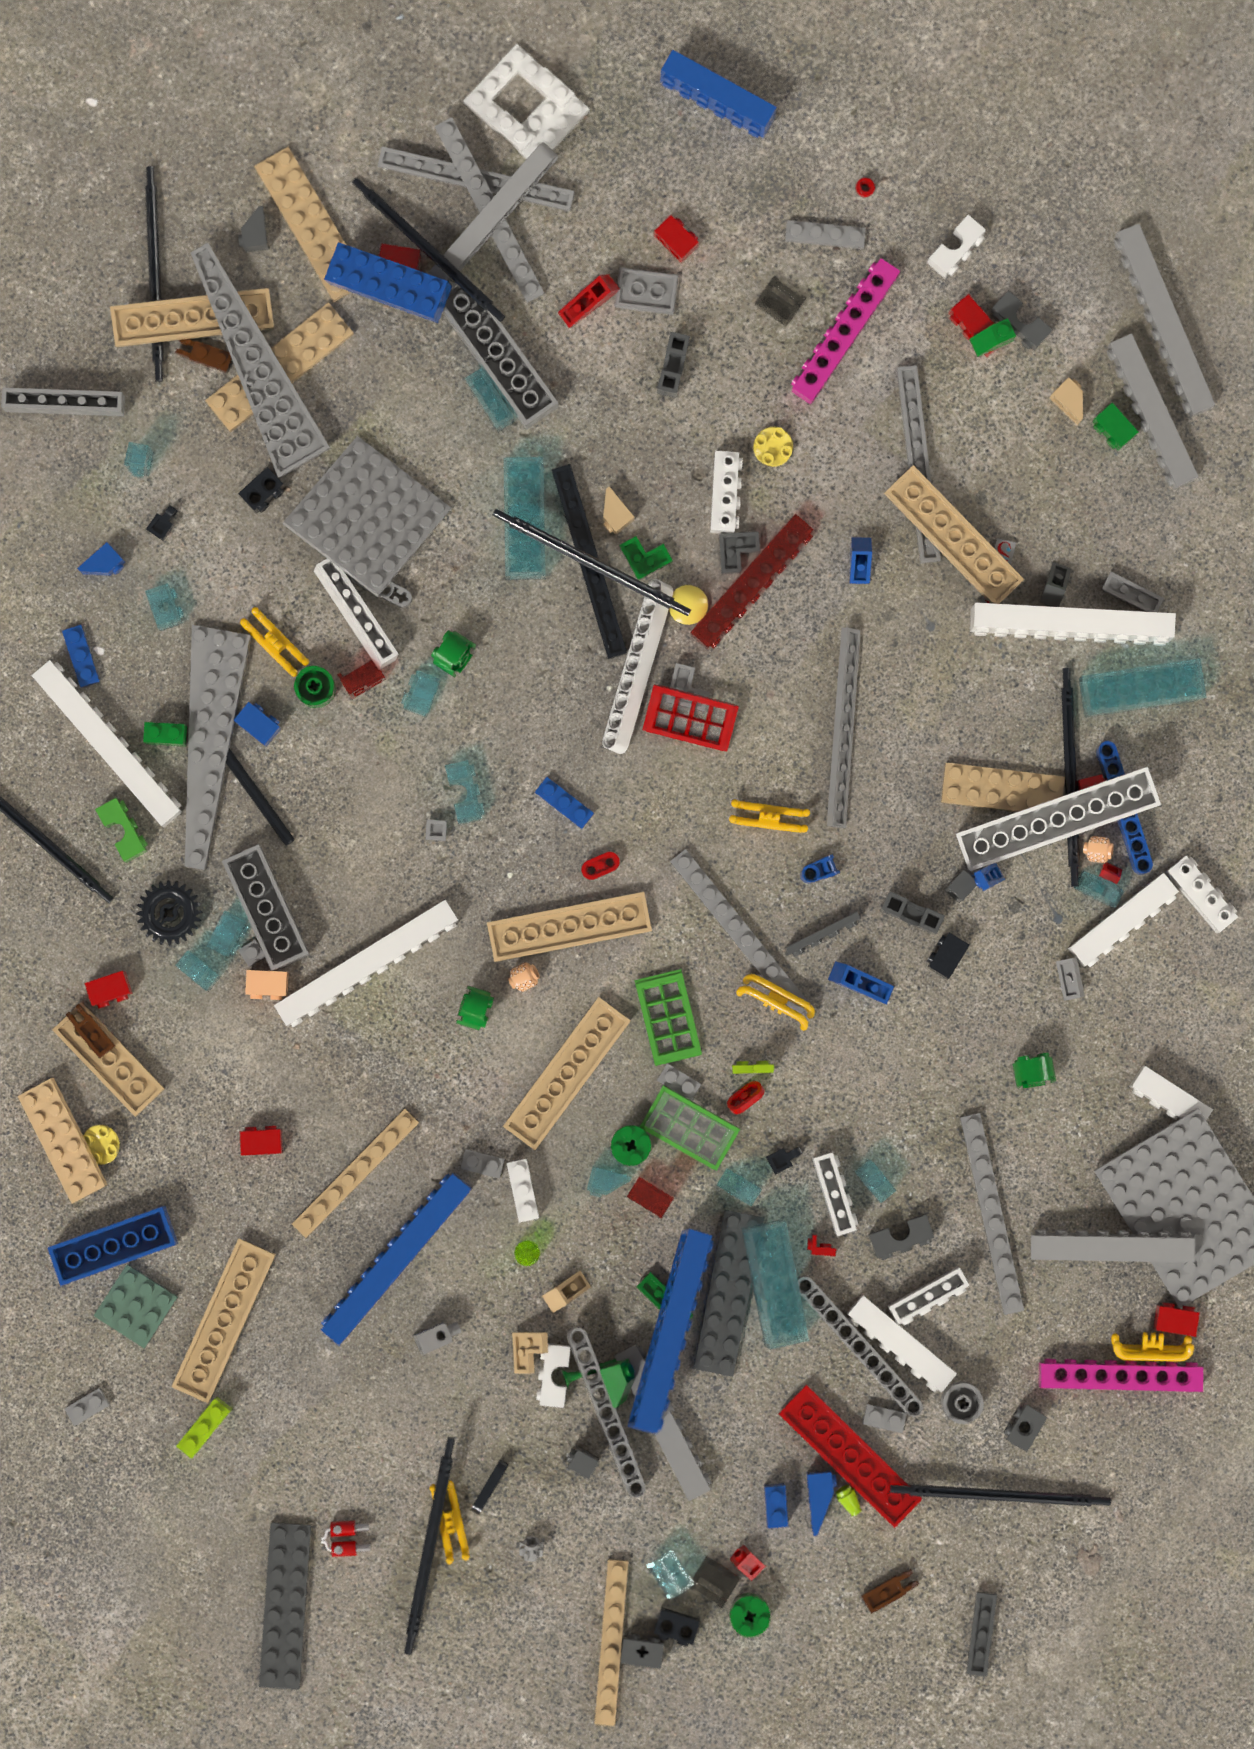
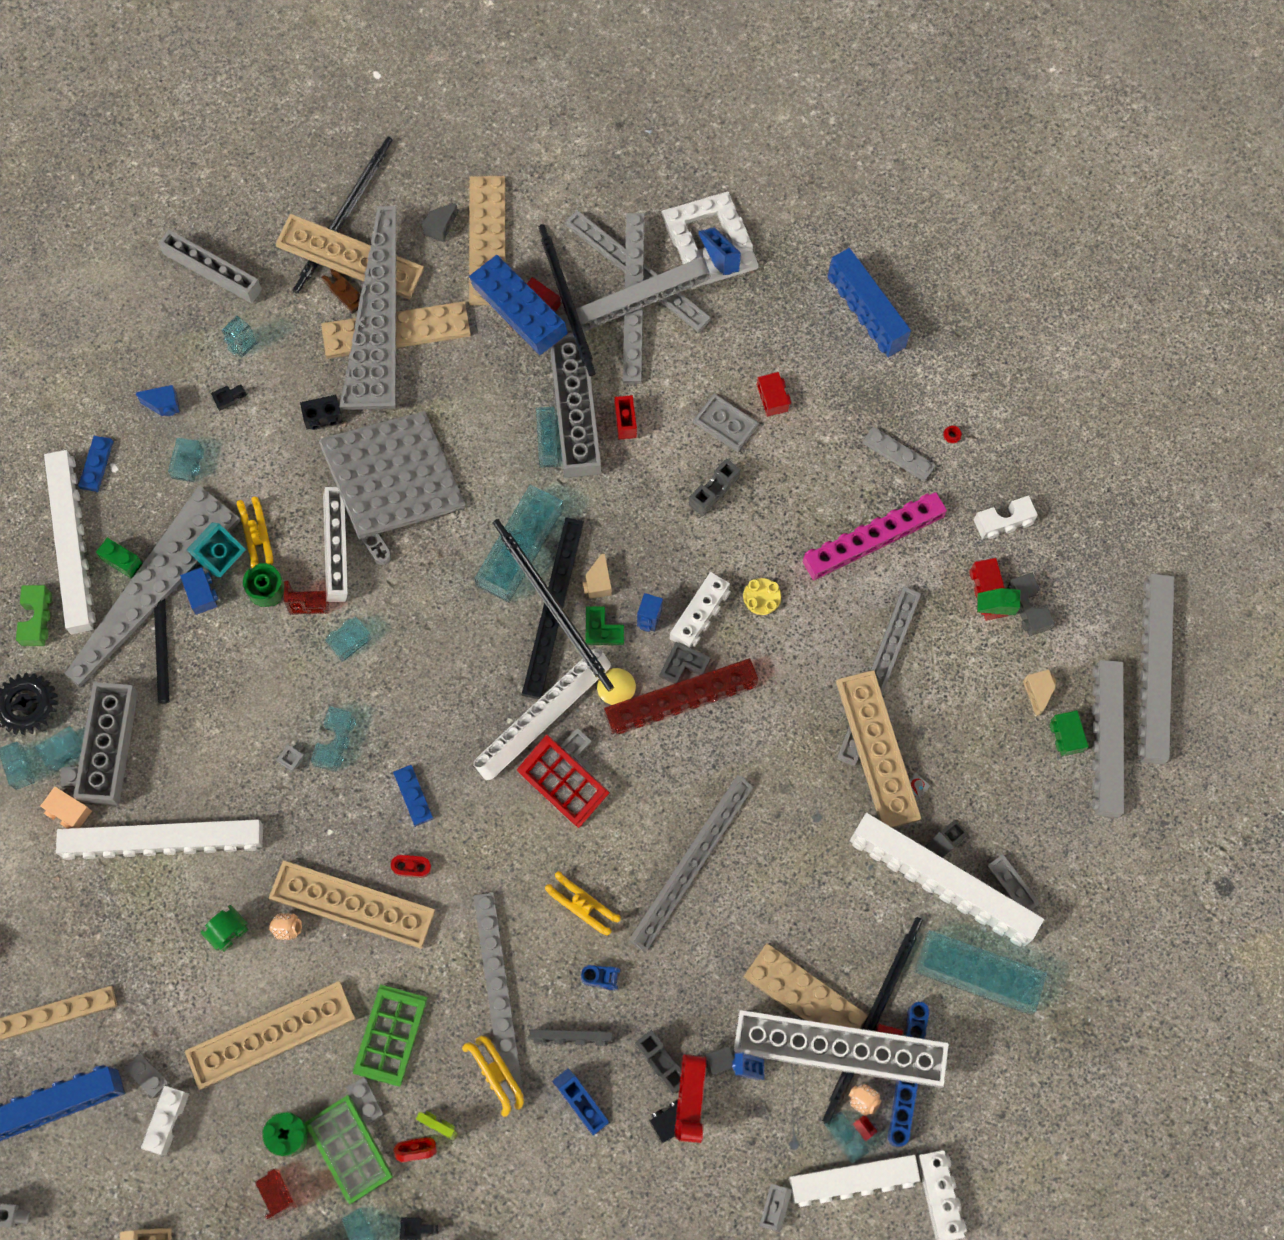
camera: 30 degrees right, 15 degrees down
(251, 678) = (216, 549): none -> teal brick
(453, 653) = (394, 618): green brick -> none
(527, 1253) = (132, 1182): clear neon green head -> none
(550, 118) = (721, 251): none -> blue slope
(551, 339) = (625, 417): none -> red brick
(589, 300) = (675, 403): red slope -> none
(605, 1181) = (243, 1155): clear light blue slope -> none
(681, 521) = (649, 612): none -> blue brick
(776, 306) = (827, 487): clear smoke plate -> none
(860, 560) = (785, 727): blue slope -> none
(955, 932) = (688, 1117): none -> red beam

